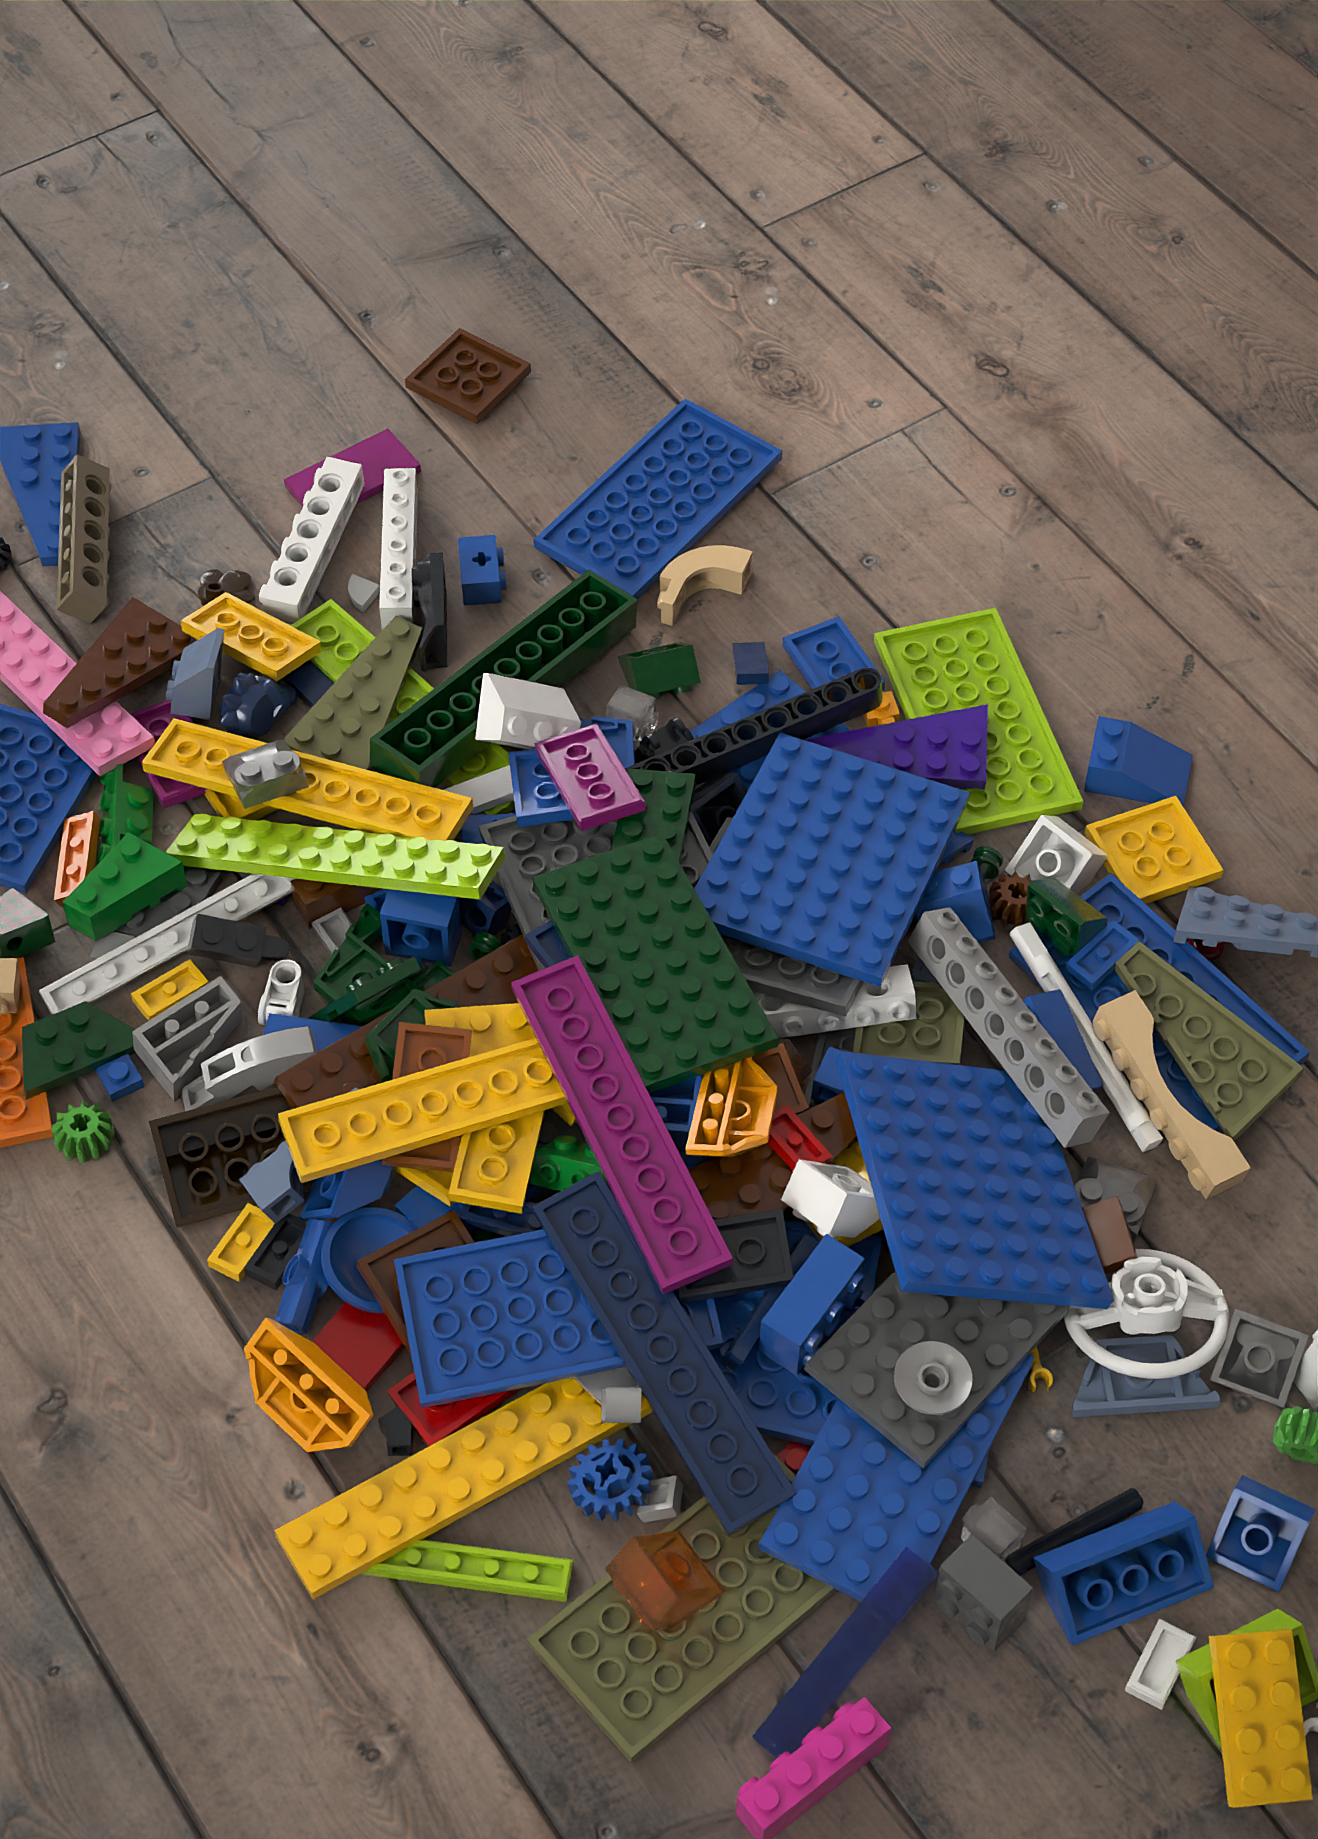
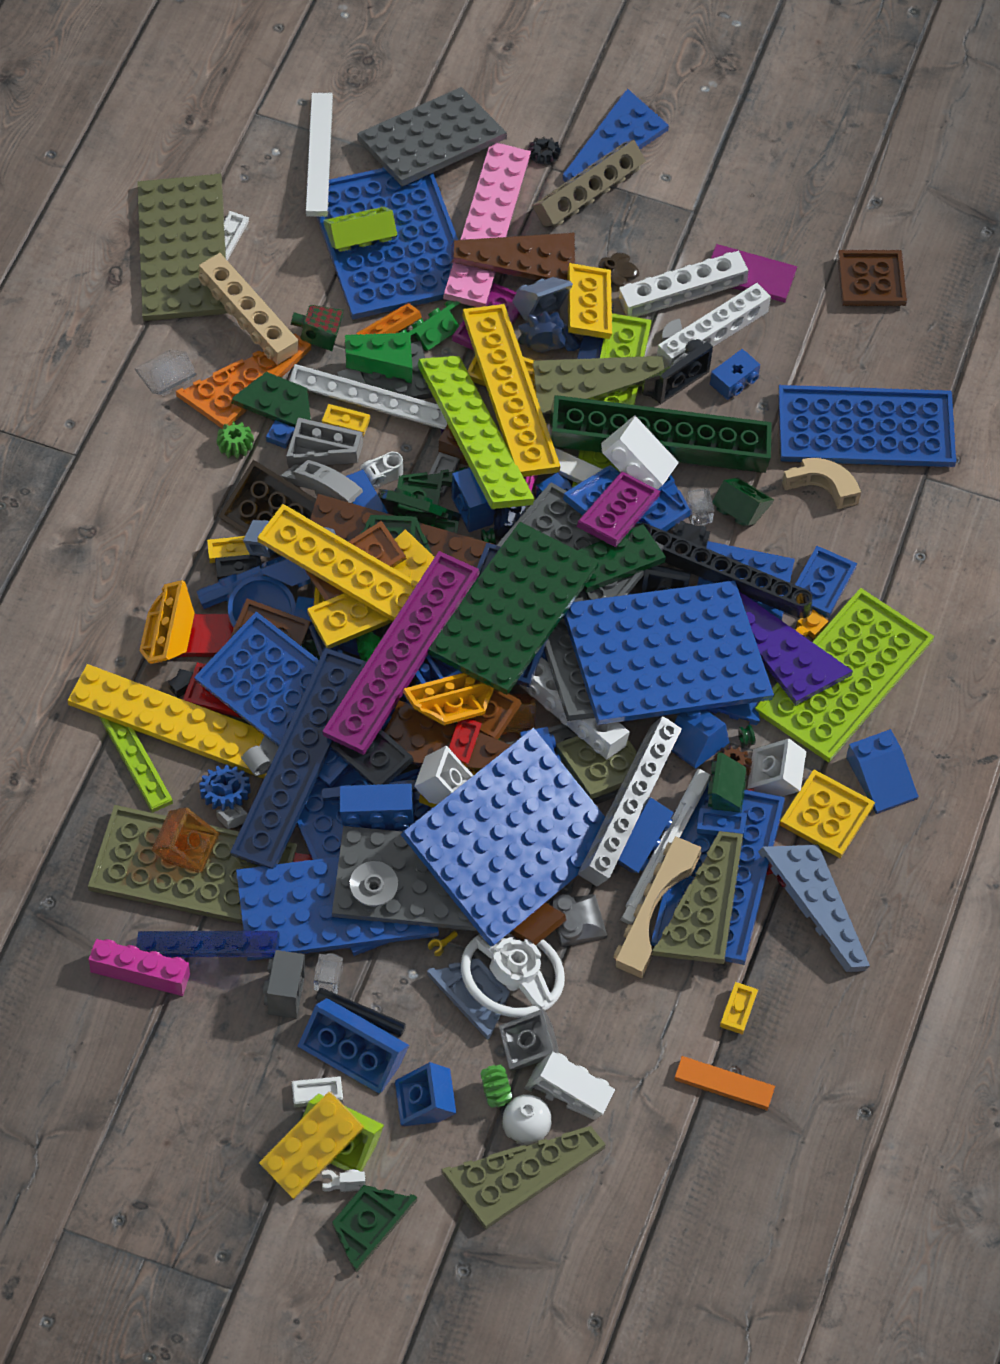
camera: 50 degrees right, 5 degrees up
(234, 941) = (392, 425): black hinge -> none
(265, 773) = (497, 365): flat silver slope -> none
(750, 663) = (785, 541): dark blue tile -> none

